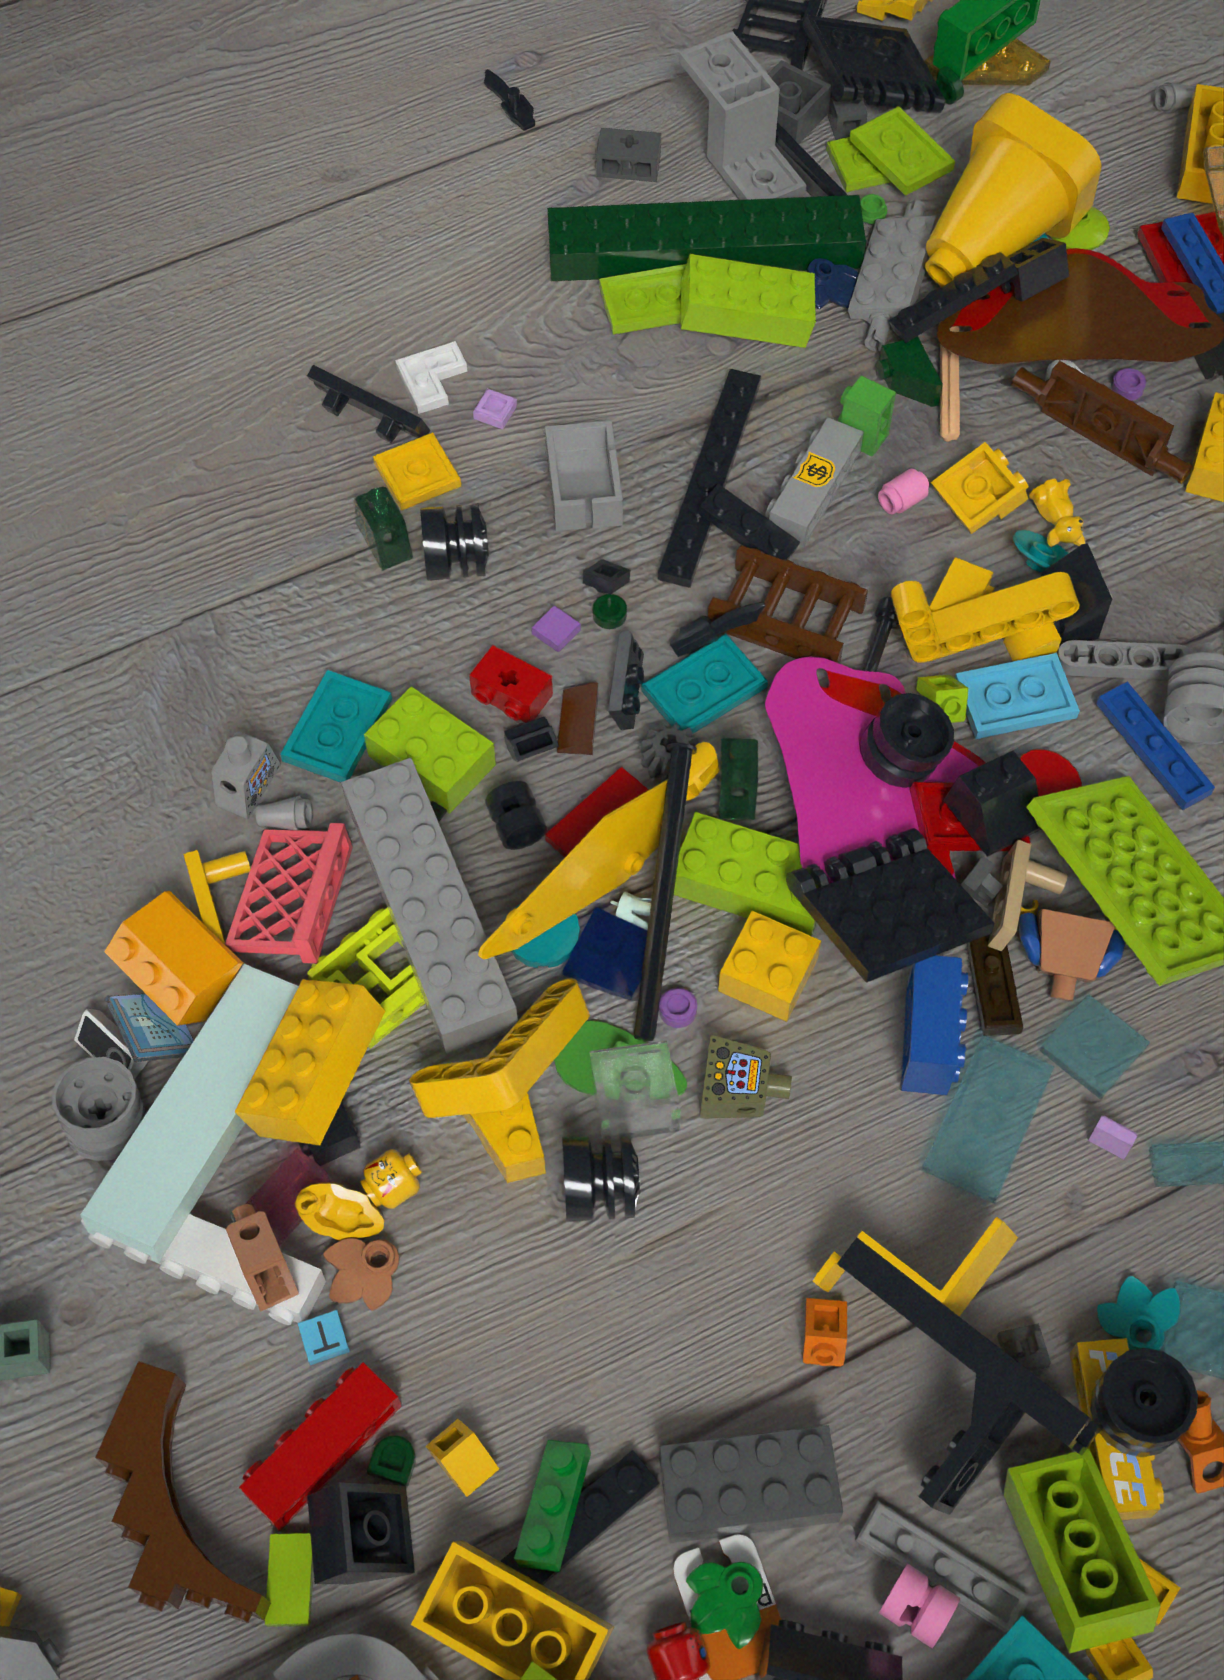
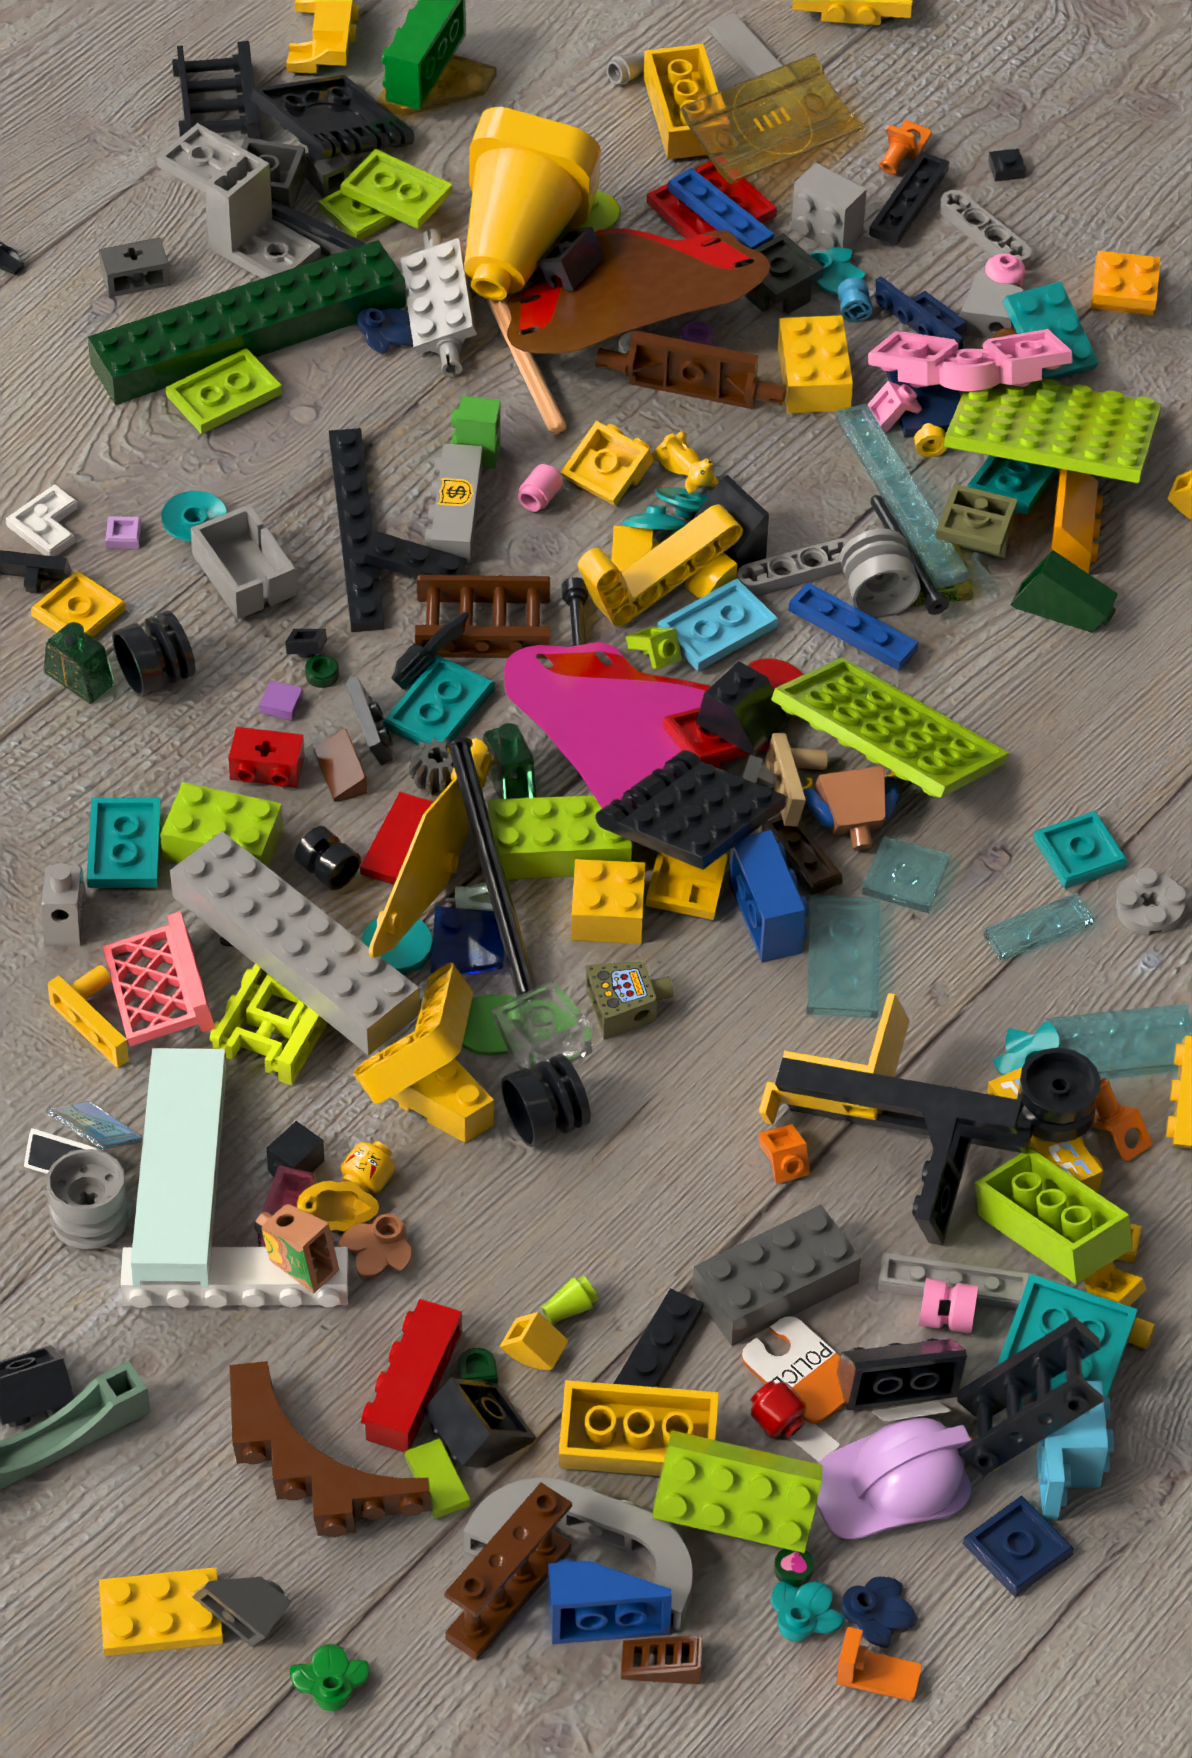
camera: 25 degrees left, 10 degrees down
(174, 959) = (87, 1064): light orange slope -> none
(286, 814) = (116, 926): light grey cone -> none
(310, 1061) = (257, 1095): yellow brick -> none
(323, 1337) = (371, 1304): medium azure tile -> none
(523, 1421) = (570, 1300): none -> lime cone
(530, 739) = (306, 796): black piece -> none
(553, 1505) = (627, 1342): green plate -> none
(560, 405) = (189, 510): none -> teal dish
(678, 1007) = (545, 962): medium lavender tile -> none
(721, 1606) = (796, 1363): green plate -> none
(748, 301) = (319, 365): lime brick -> none
(844, 985) = (686, 888): none -> yellow plate
(873, 208) = (394, 247): bright green plate -> none
(907, 740) = (644, 683): black wheel -> none
(910, 371) = (498, 380): dark green slope -> none
(950, 85) = (412, 115): dark green tile -> none
(953, 297) = (510, 304): black plate -> none
(1000, 564) = (655, 518): none -> teal dish
(1113, 1137) = (951, 933): lavender tile -> none

